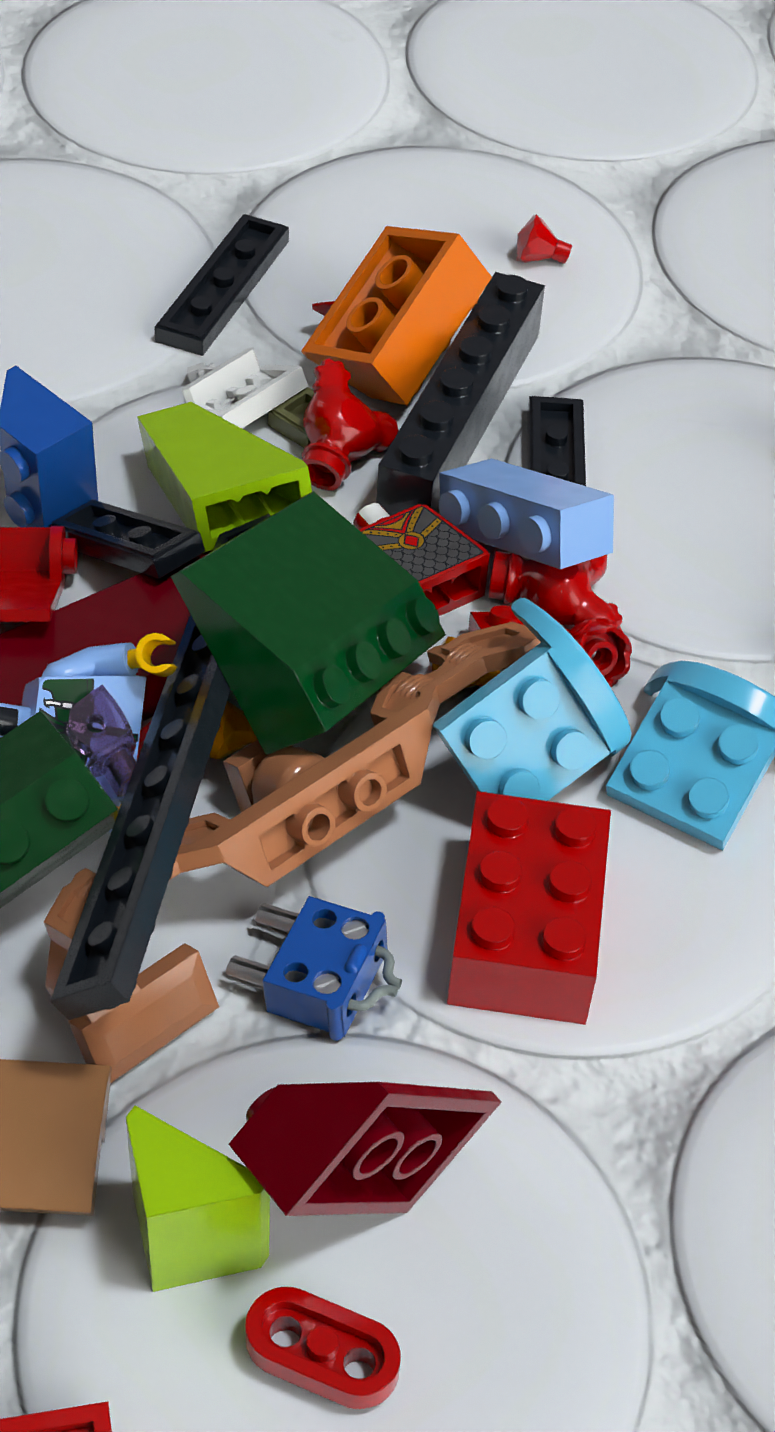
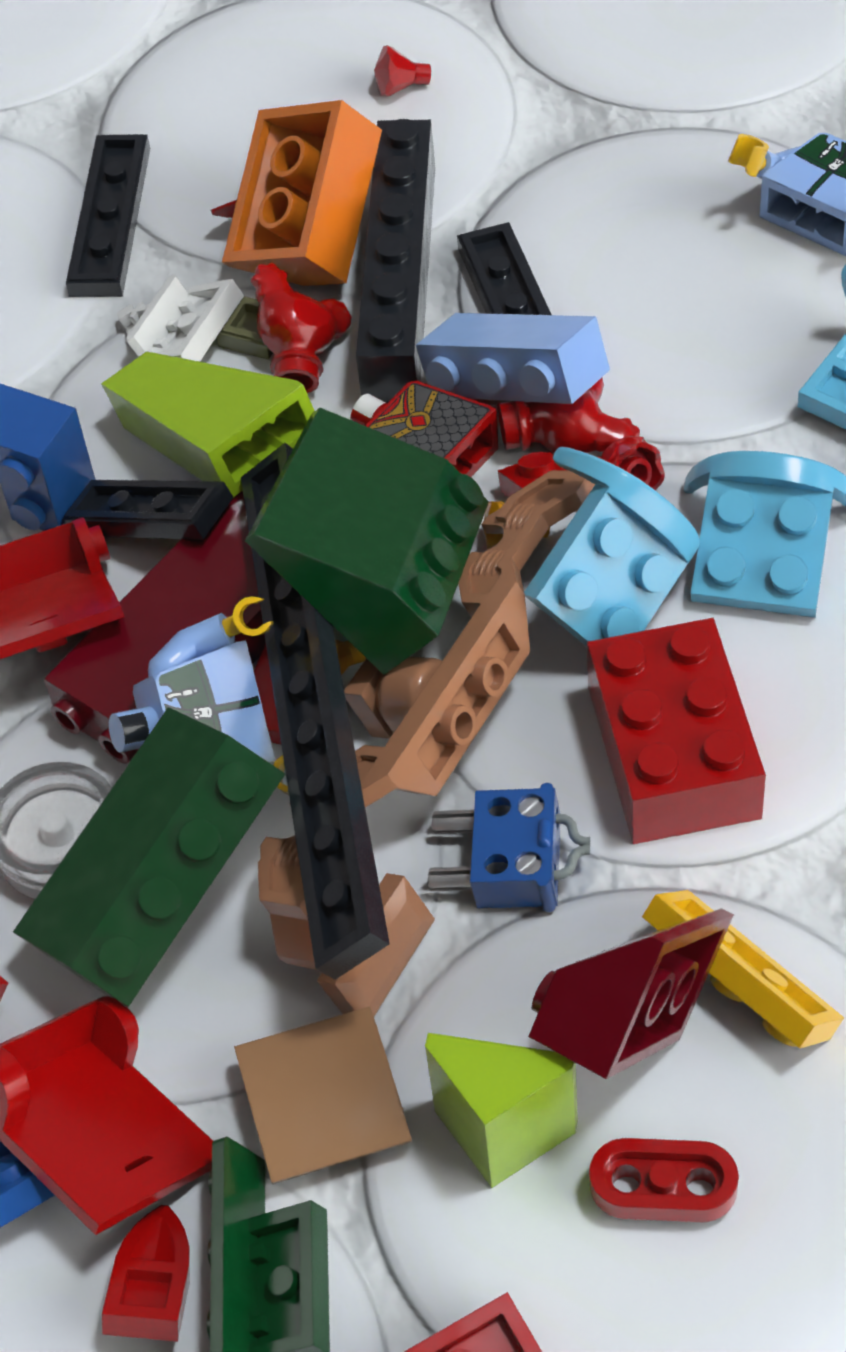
camera: 10 degrees left, 5 degrees up
(109, 750) = (245, 719): clear purple piece -> none
(505, 1178) = (751, 976): none -> yellow plate

